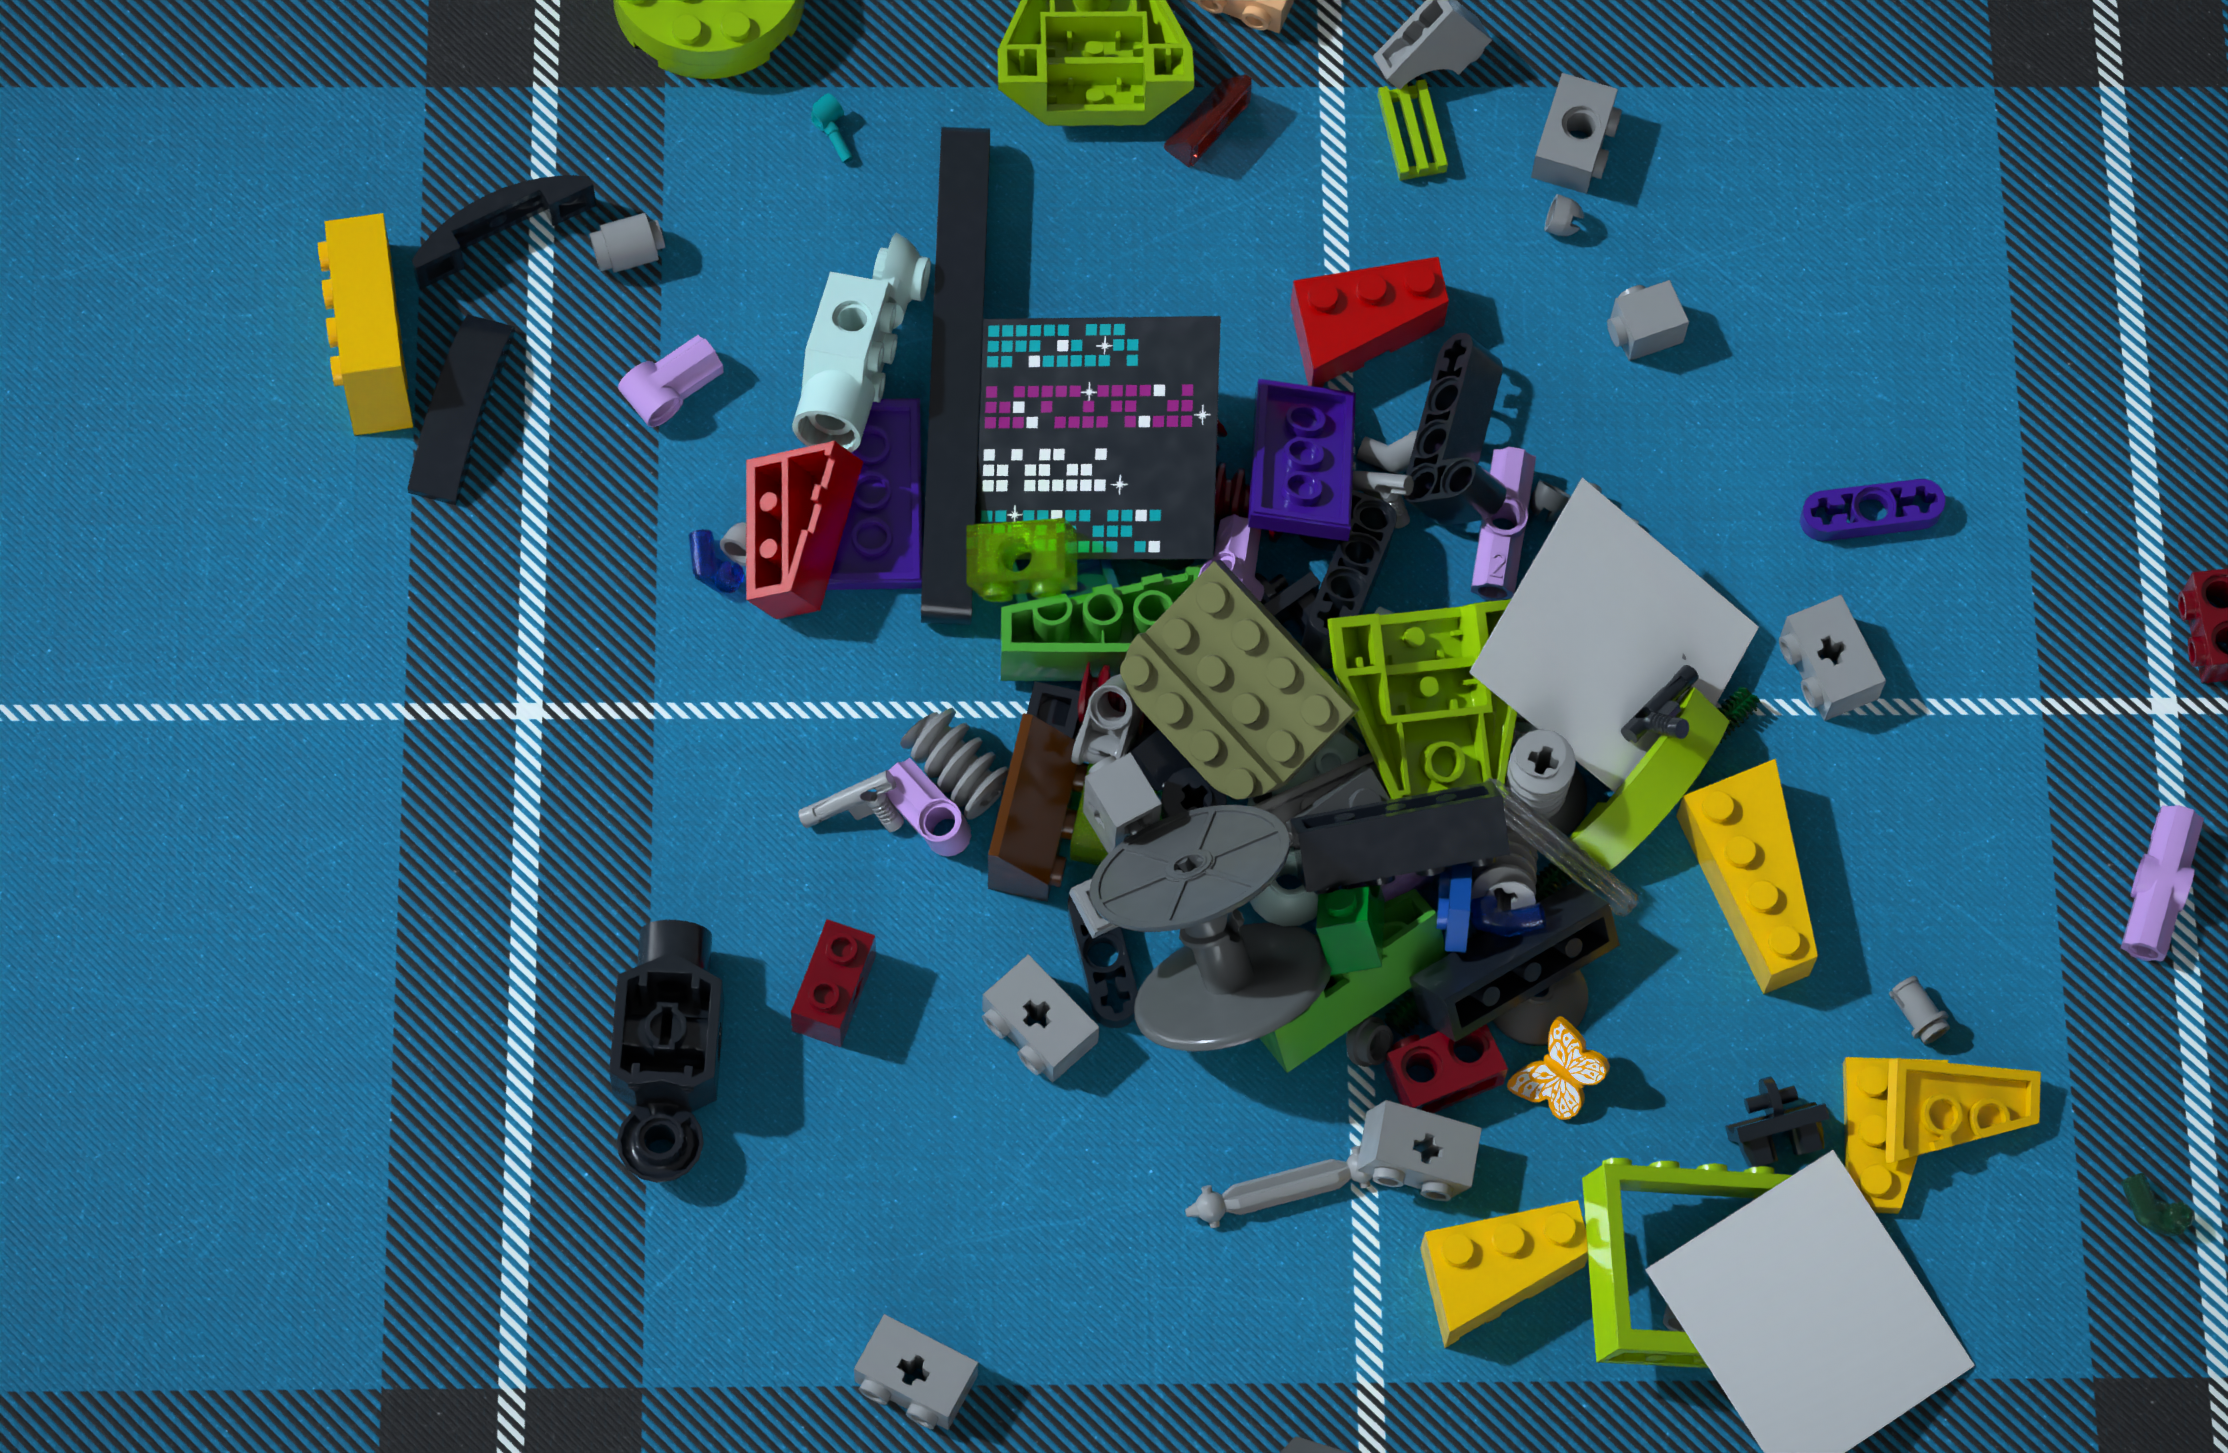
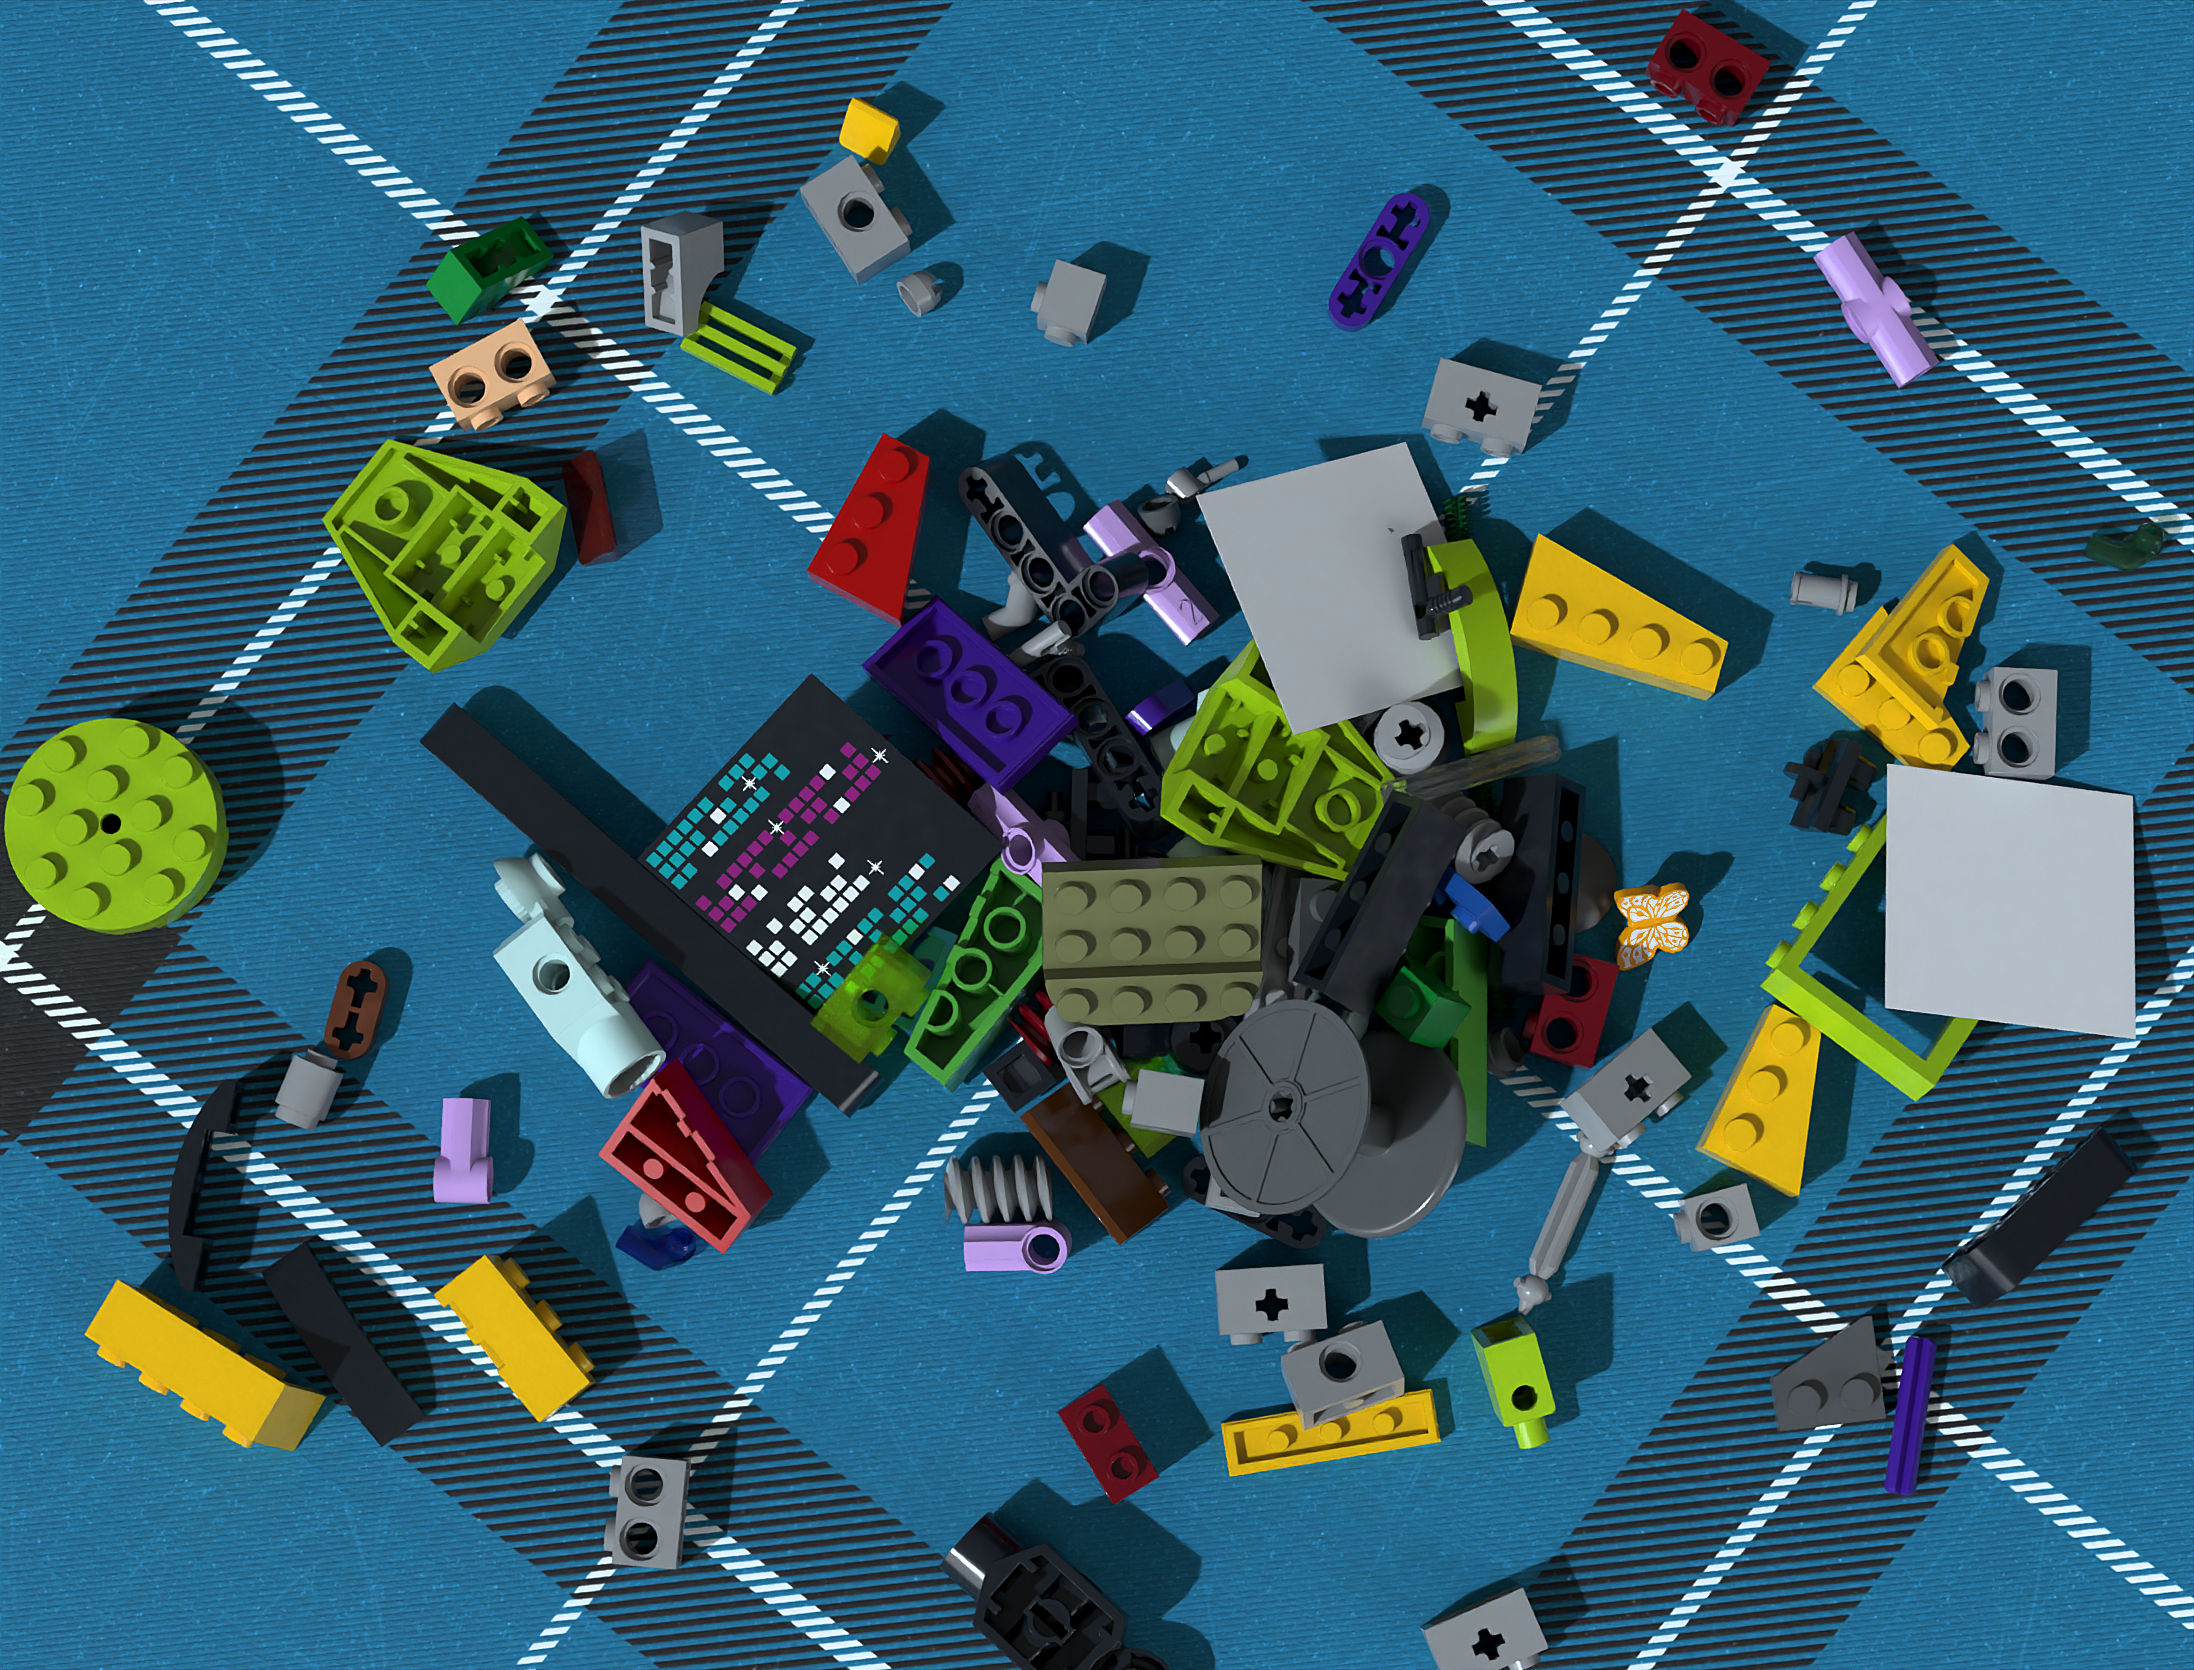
camera: 45 degrees left, 15 degrees up
(522, 712) = (663, 1513): none -> light grey brick
(568, 509) = (518, 1335): none -> yellow wedge
(712, 235) = (369, 1014): none -> copper beam
(823, 115) = (322, 827): teal hand -> none
(858, 802) = (967, 1296): light grey hose -> none
(977, 1144) = (1281, 1441): none -> yellow tile
(1036, 1133) = (1325, 1398): none -> light grey brick
(1137, 1216) = (1510, 1360): none -> lime torso
(1383, 1319) = (1739, 1212): none -> light grey brick
(1404, 592) = (1160, 709): none -> dark purple beam
(1506, 922) = (1508, 868): clear blue arm -> none
(1646, 96) = (869, 131): none -> yellow slope
(1957, 1235) = (2032, 726): none -> light grey brick

